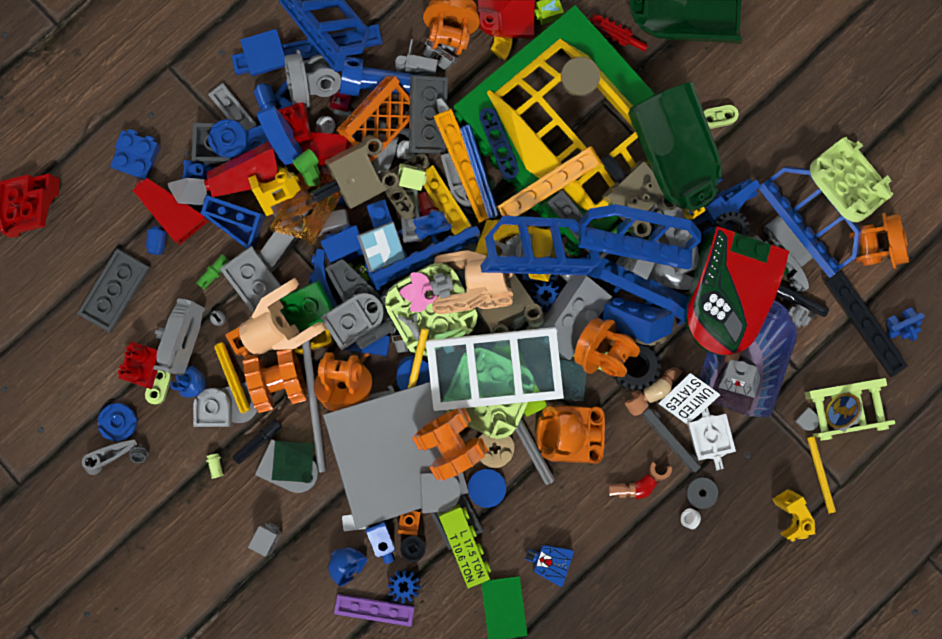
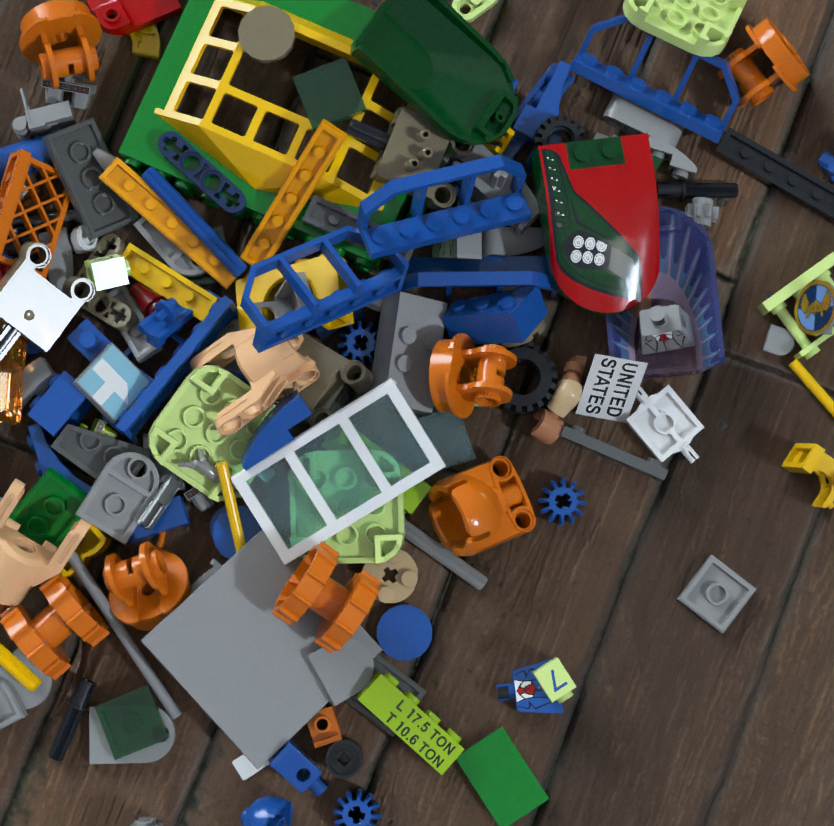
camera: 25 degrees left, 0 degrees up
(215, 465) = (30, 778): yellowish green pin -> none
(416, 292) = (187, 420): bright pink plate -> none
(441, 285) = (215, 395): light grey gear -> none
(467, 324) = (275, 429): none -> blue slope
(566, 564) = (555, 680): none -> yellowish green brick
(602, 131) = (329, 93): none -> clear green tile
(622, 461) = (564, 511): none -> blue gear
(641, 488) = (606, 533): nougat piece -> none
(690, 518) = (688, 543): white tile -> none
(693, 559) = (716, 594): none -> light grey tile
(708, 499) = (693, 491): dark grey piece -> none

